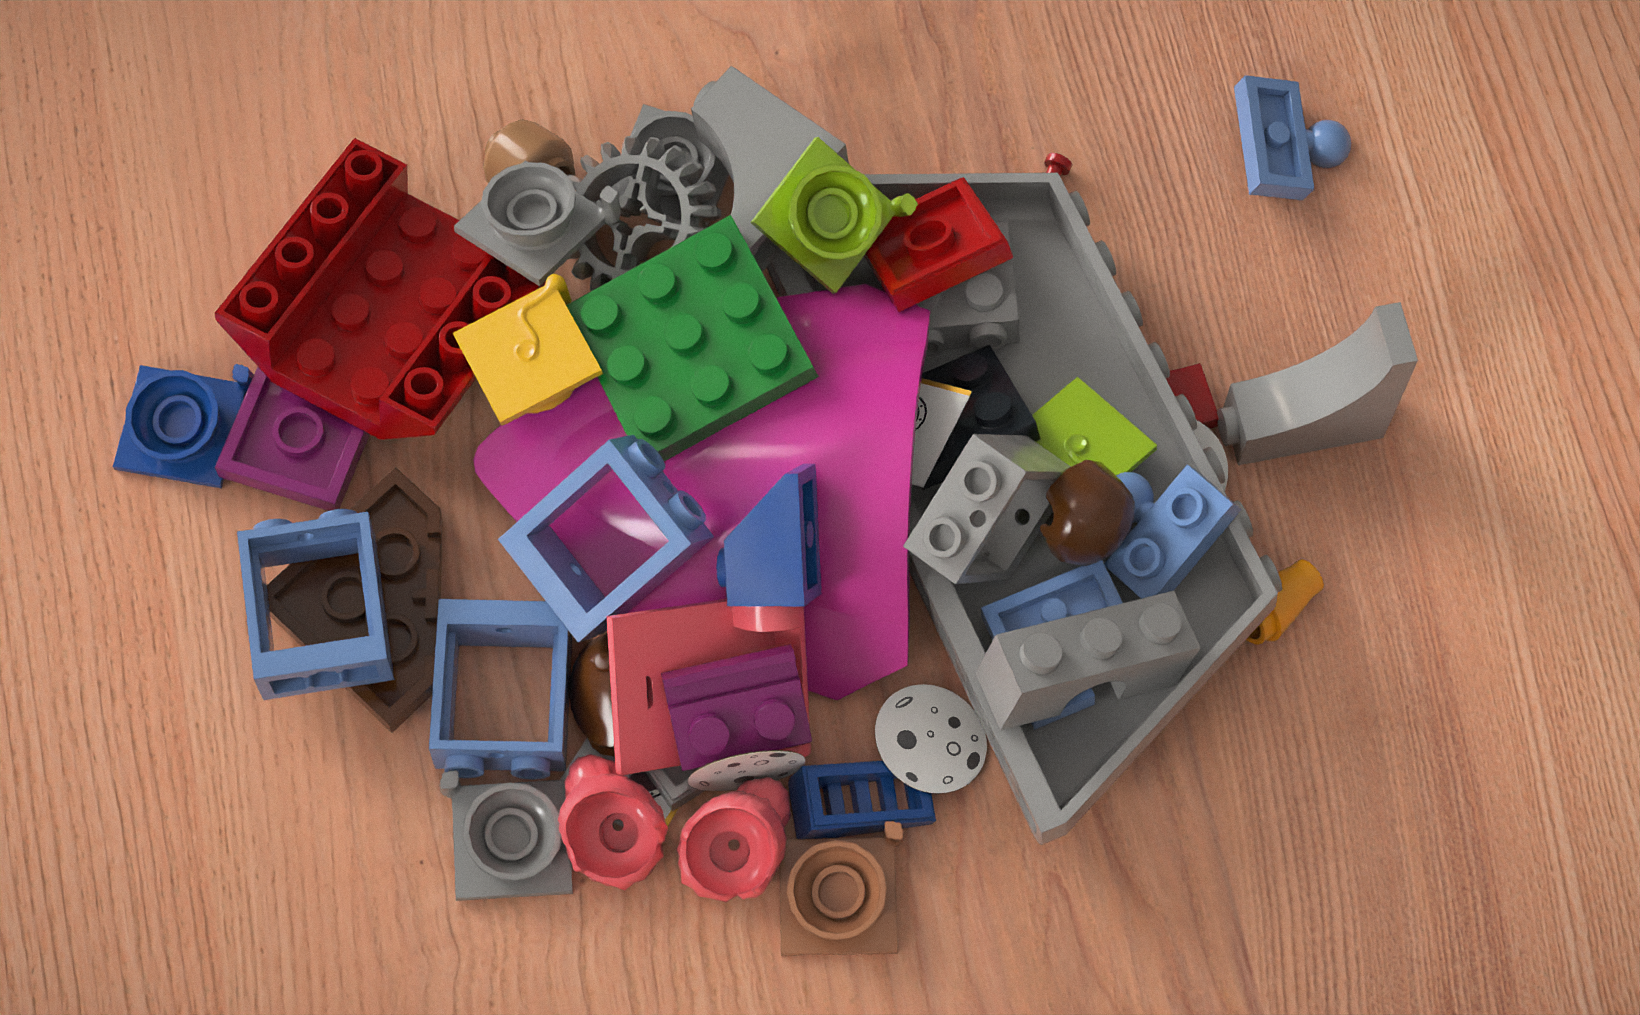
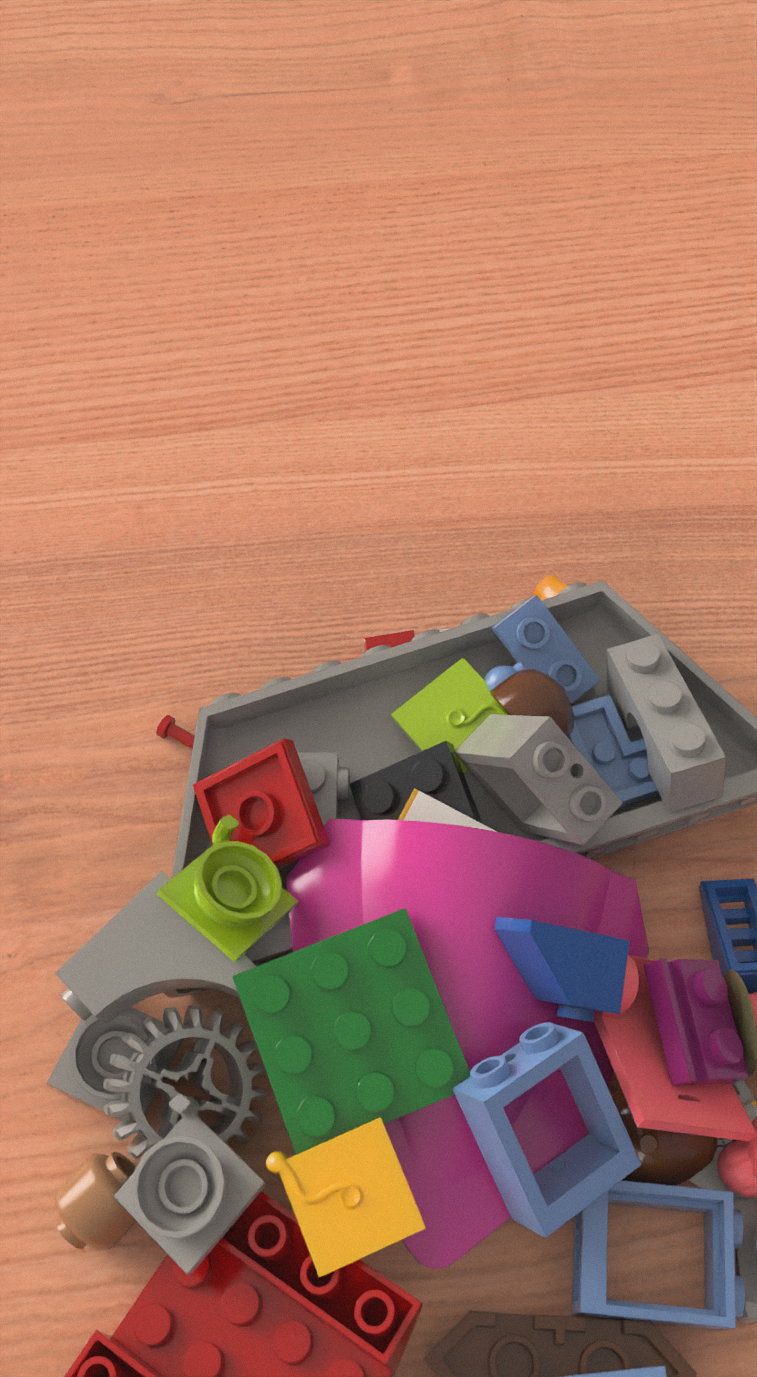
camera: 85 degrees left, 5 degrees down
(930, 738) = (685, 875): white sticker -> none
(1276, 141) = (171, 559): medium blue plate -> none
(1326, 400) = (413, 537): light grey arch -> none

